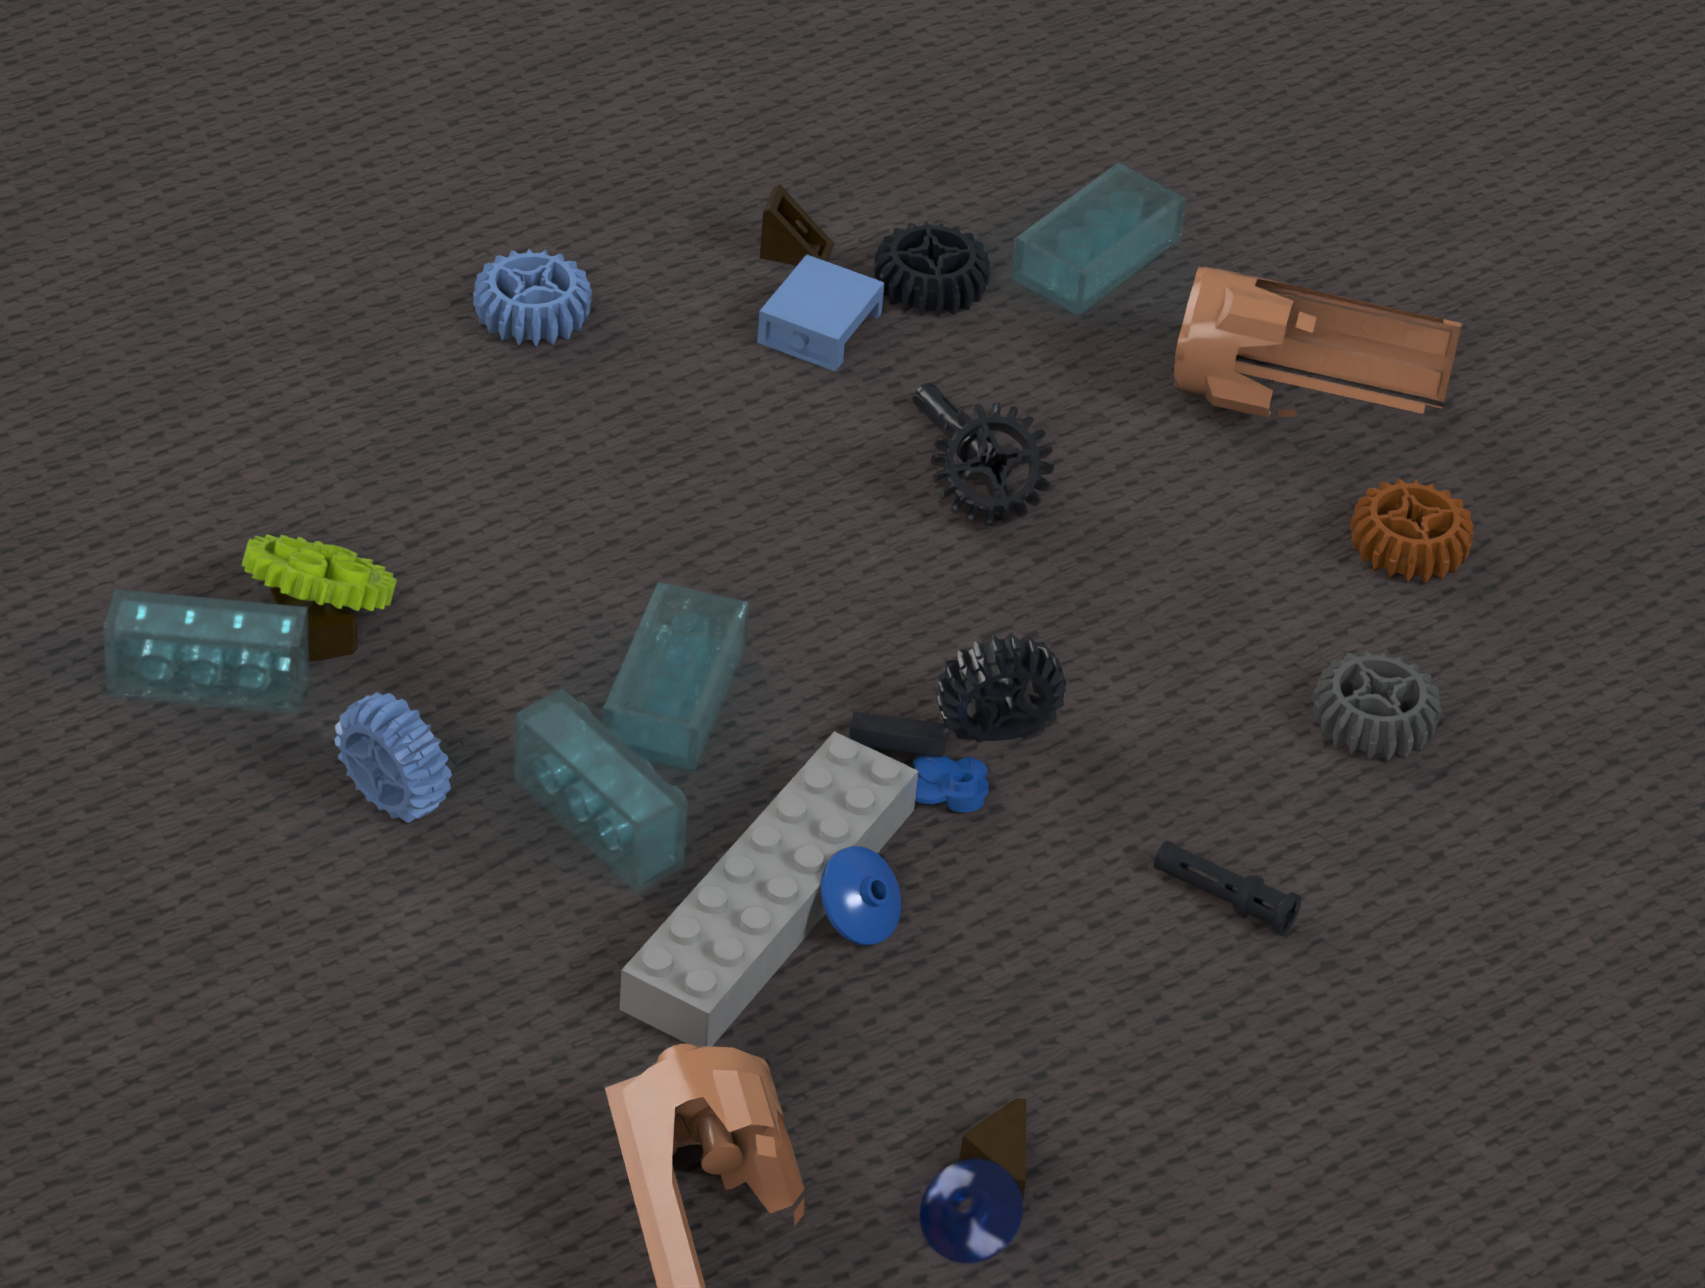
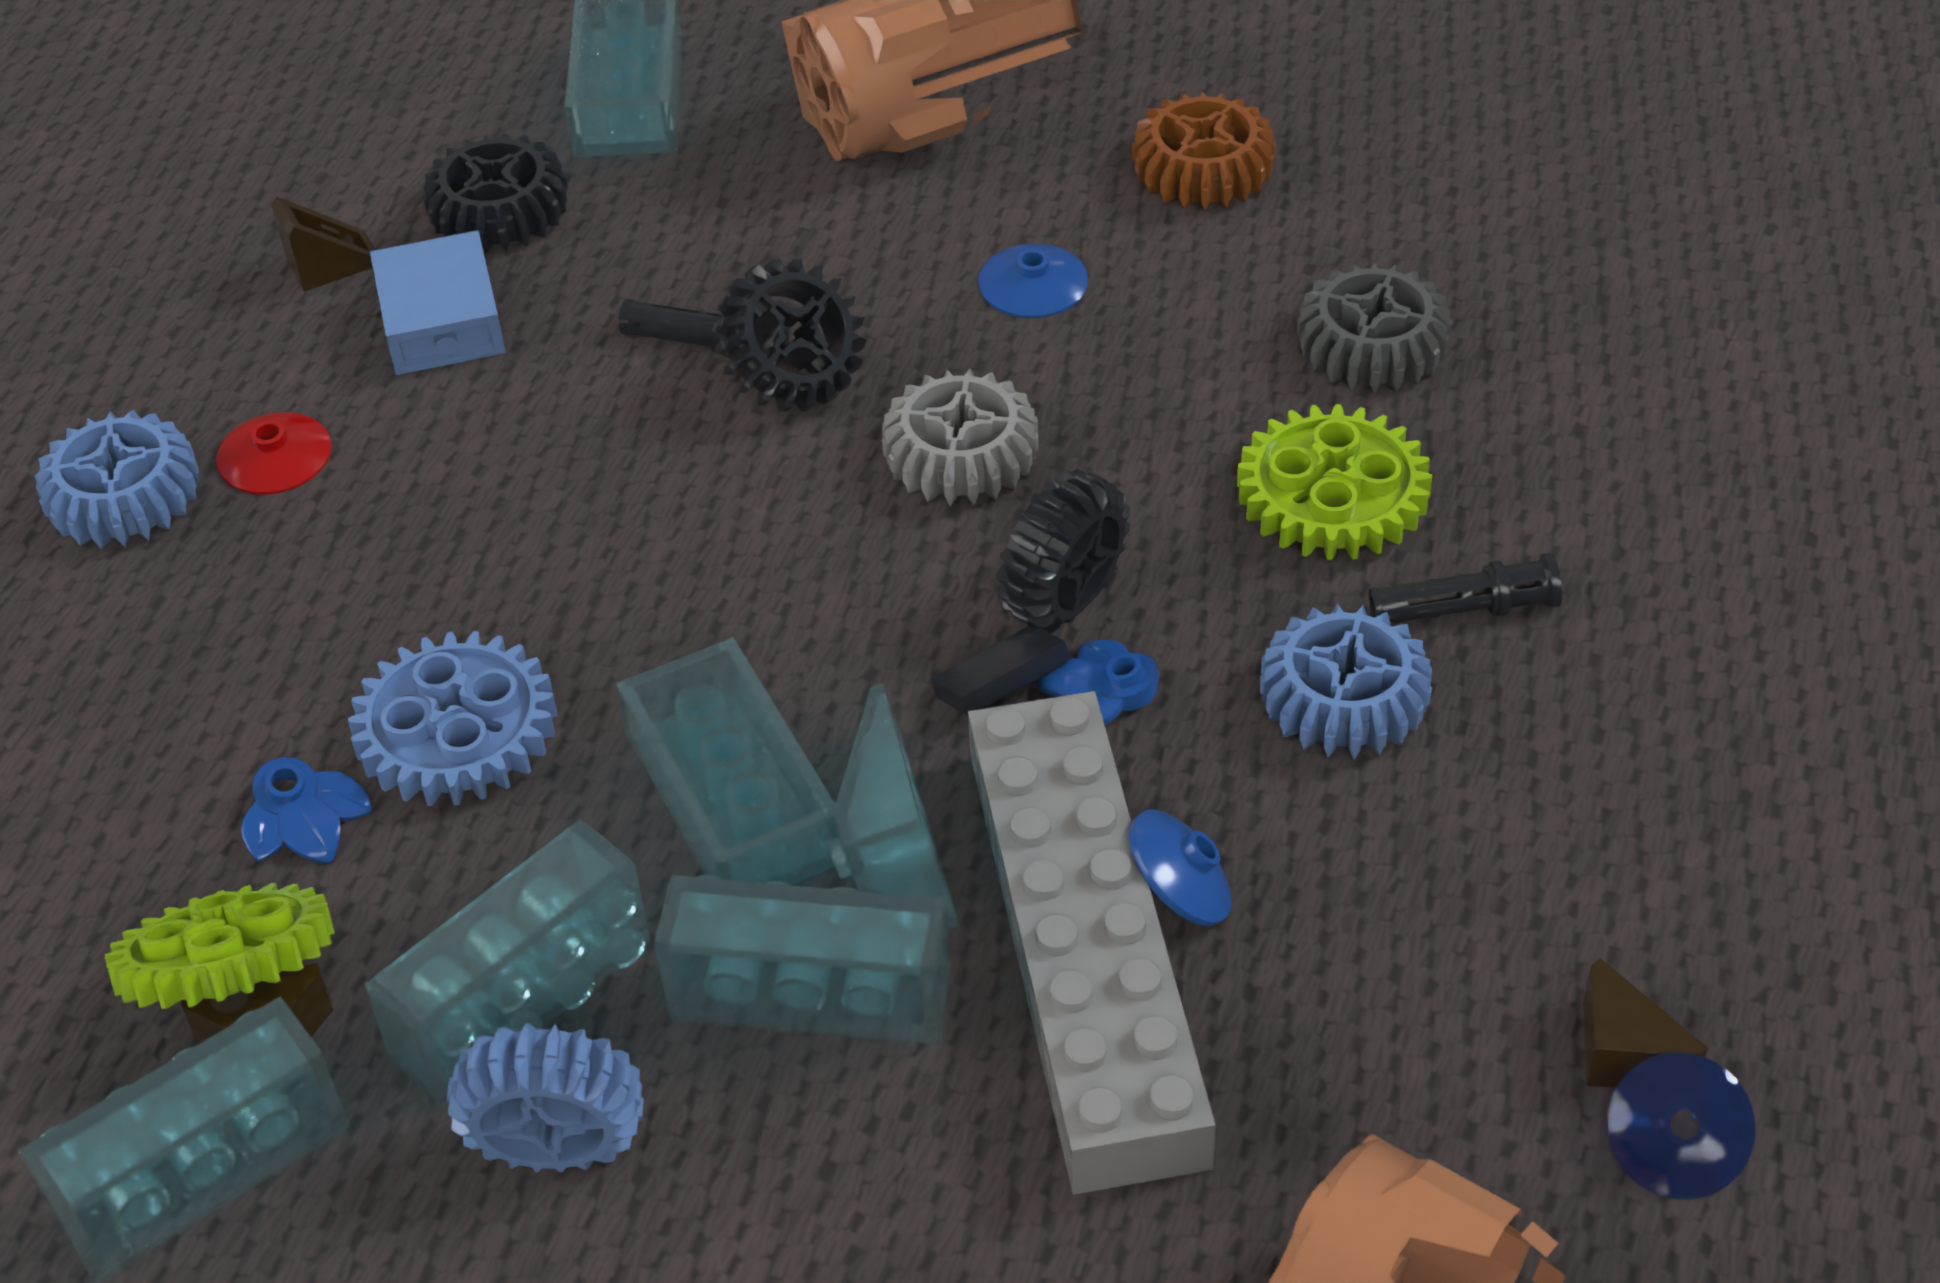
camera: 35 degrees left, 5 degrees up
(440, 546) = (303, 817): none -> blue plate
(456, 678) = (512, 956): none -> clear light blue brick
(544, 560) = (453, 718): none -> medium blue gear
(639, 342) = (273, 453): none -> red dish
(731, 754) = (881, 816): none -> clear light blue wedge
(1034, 595) = (960, 436): none -> light grey gear
(1085, 887) = (1378, 698): none -> medium blue gear
(1206, 539) = (1033, 280): none -> blue dish
(1229, 771) = (1334, 481): none -> lime gear

